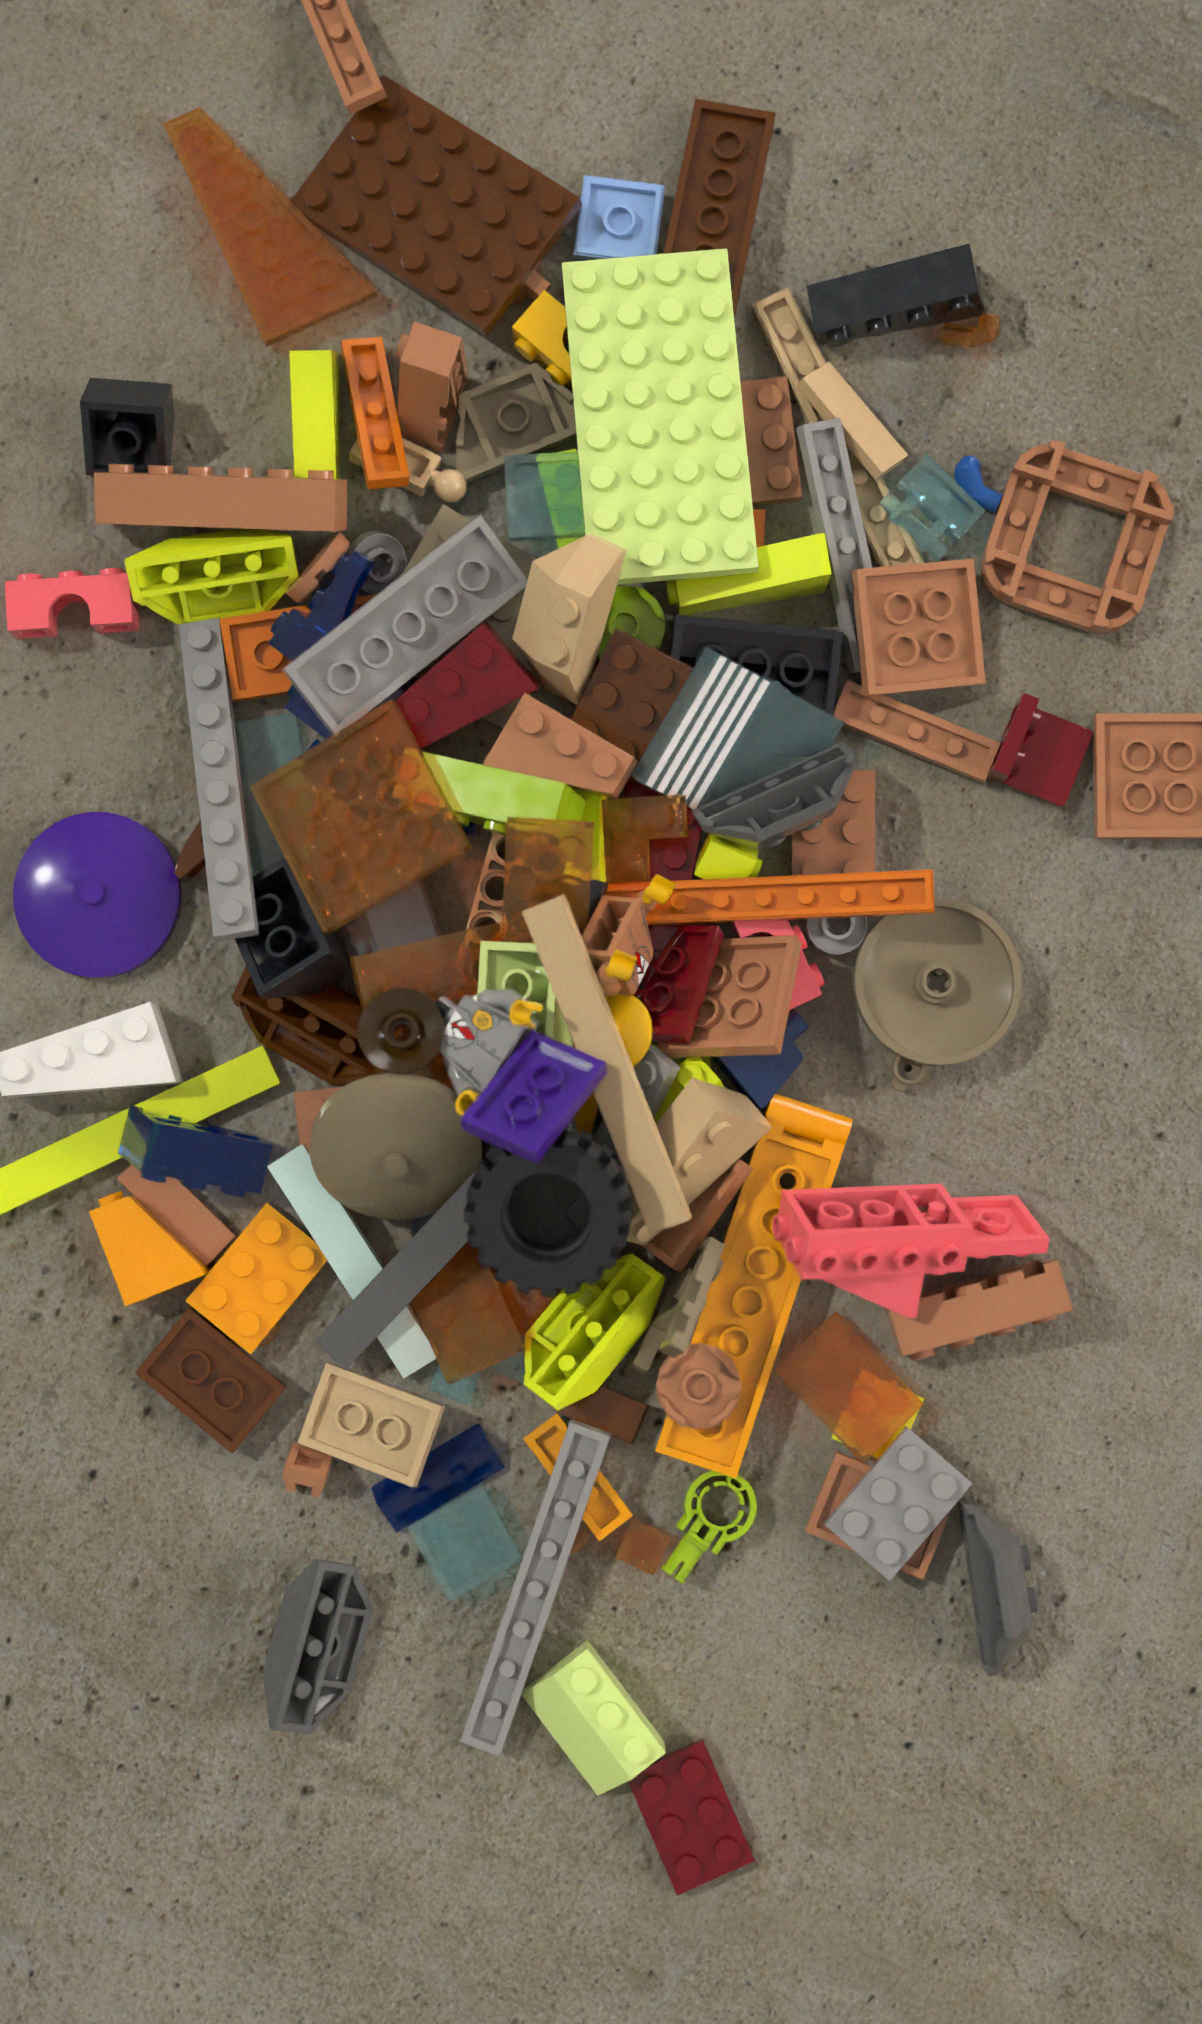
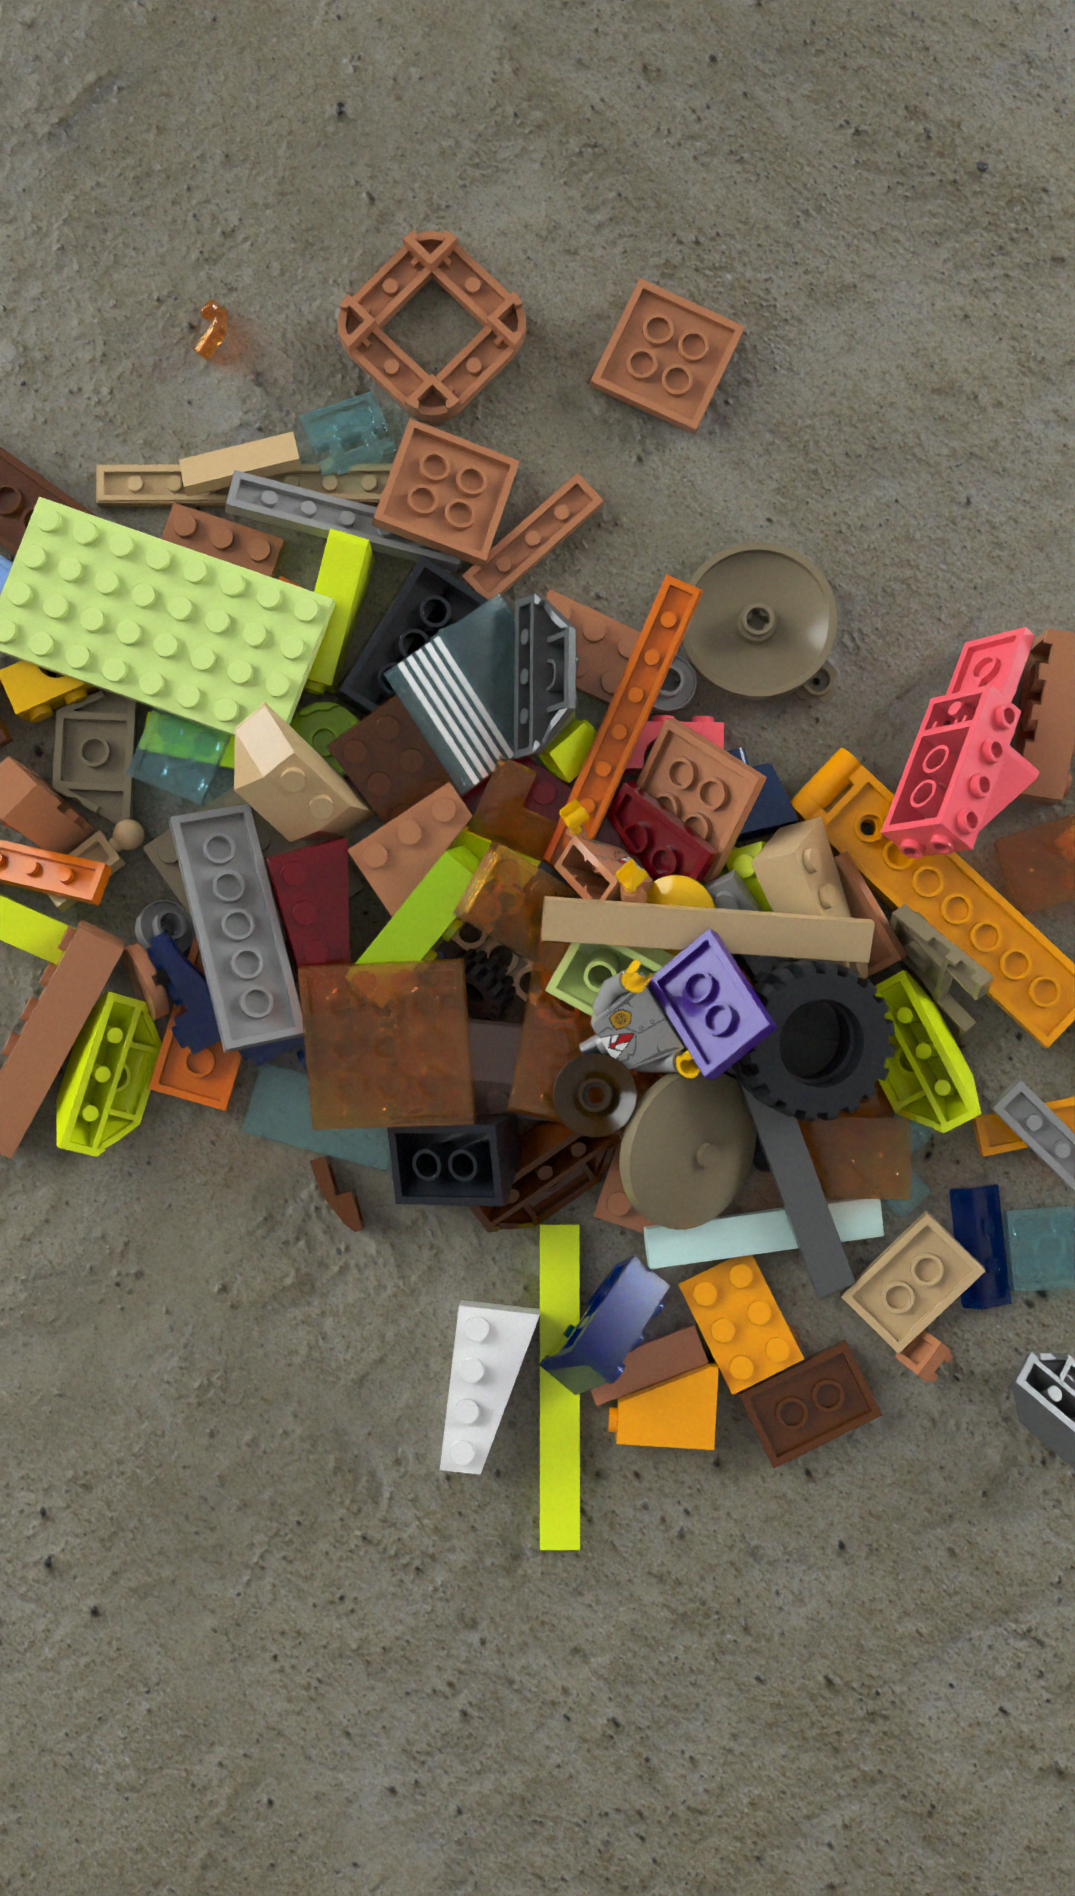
camera: 70 degrees left, 0 degrees up
(37, 602) = (56, 1243): coral arch -> none
(97, 895) = (339, 1309): dark purple dish -> none
(218, 781) = (292, 1155): light grey plate -> none
(461, 883) = (486, 985): none -> black tyre
(610, 1412) = (996, 1070): reddish brown slope -> none
(698, 1386) = (1018, 987): nougat tile -> none
(897, 297) = (151, 374): black wedge -> none
(969, 478) = (336, 390): blue arm -> none
(1040, 753) = (600, 444): dark red bracket -> none

